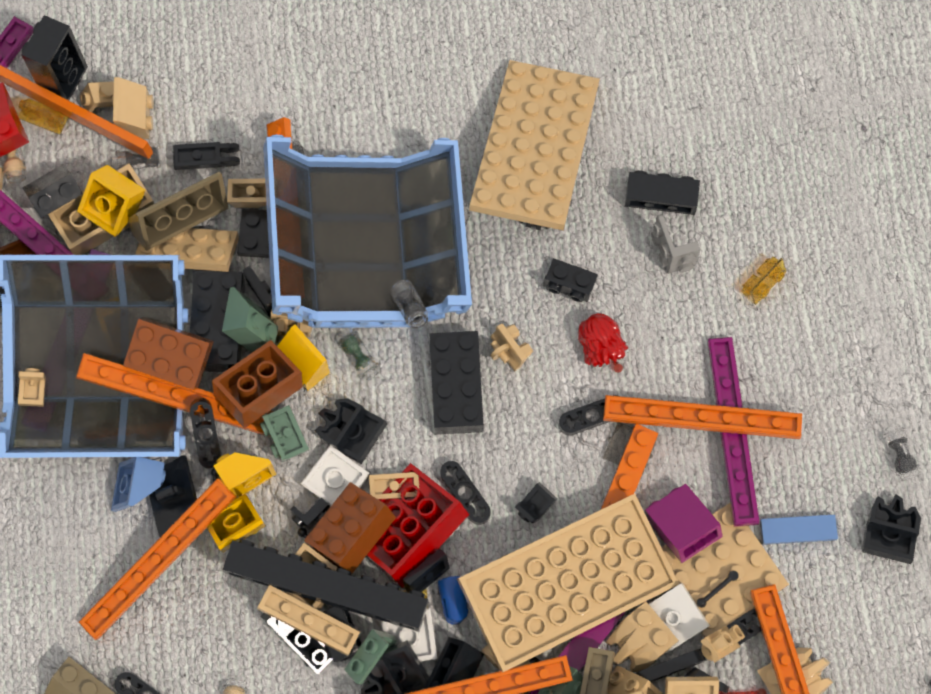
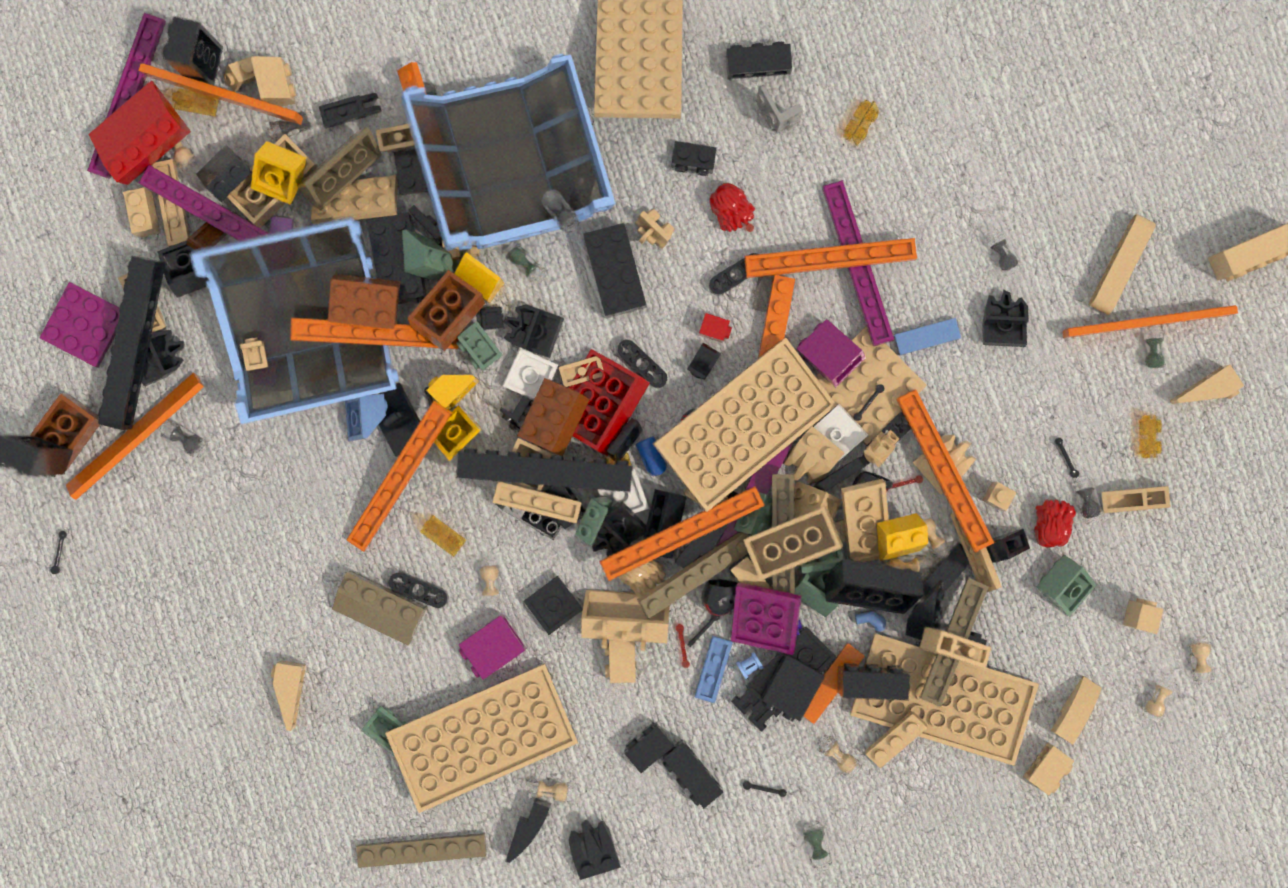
camera: 15 degrees left, 15 degrees up
(191, 640) = (443, 535): none -> clear yellow hinge
(195, 417) = (413, 352): black beam -> none
(307, 407) = (492, 318): none -> black tile
(556, 469) = (715, 328): none -> red brick

